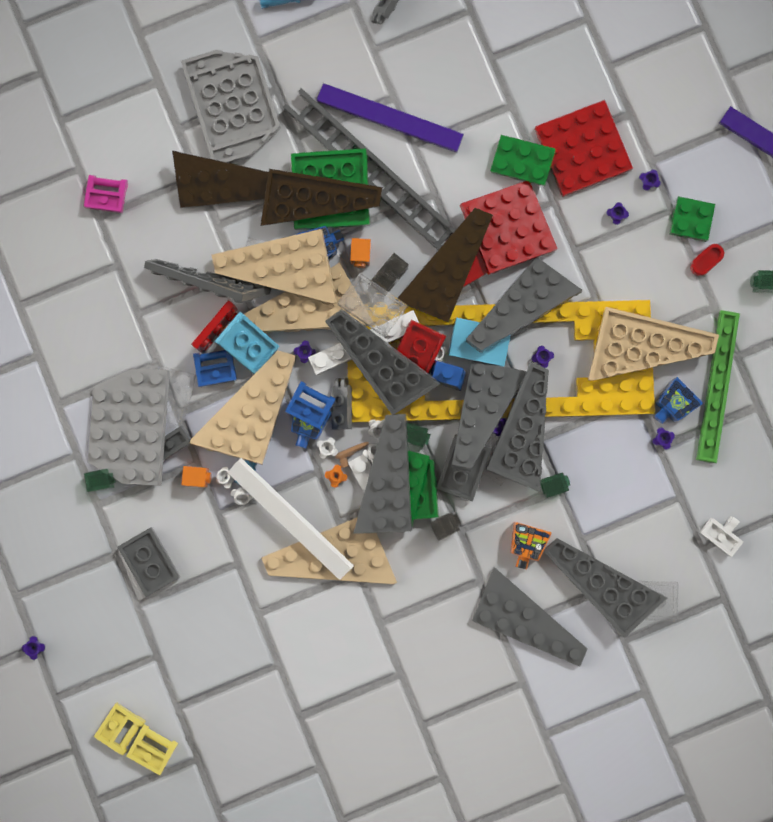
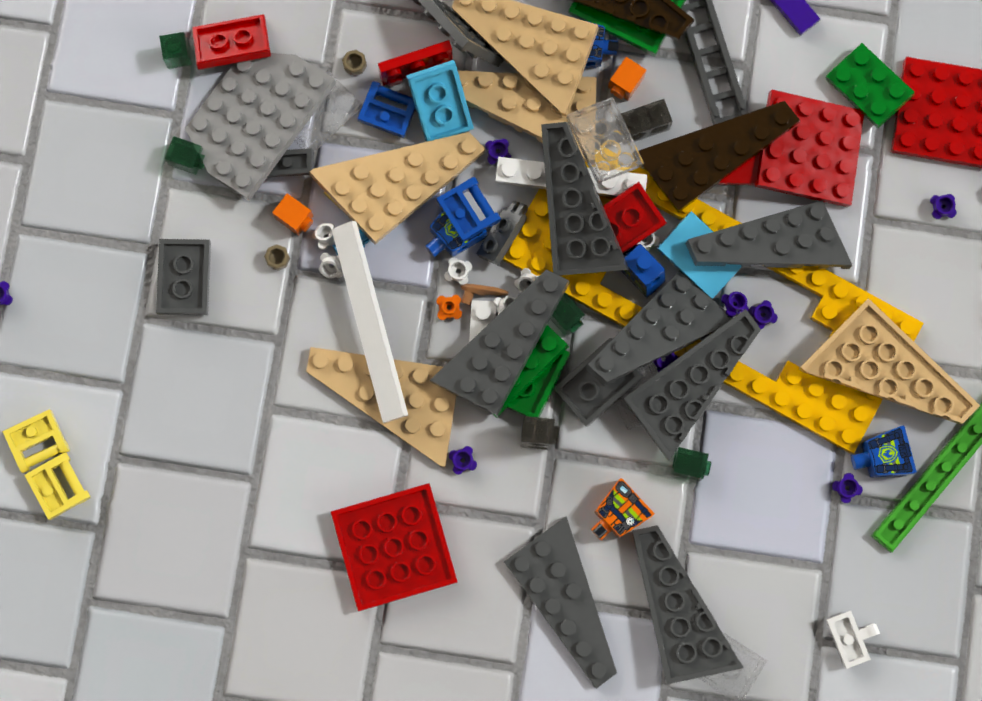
camera: 25 degrees right, 5 degrees down
(48, 413) = (175, 50): none -> clear green brick
(82, 384) = (231, 41): none -> red tile
(173, 349) = (354, 62): none -> dark tan tile
(202, 511) = (277, 257): none -> dark tan tile
(395, 655) = (393, 547): none -> red plate
(405, 576) = (469, 463): none -> dark purple plate
(520, 355) = (737, 298): none -> dark purple plate

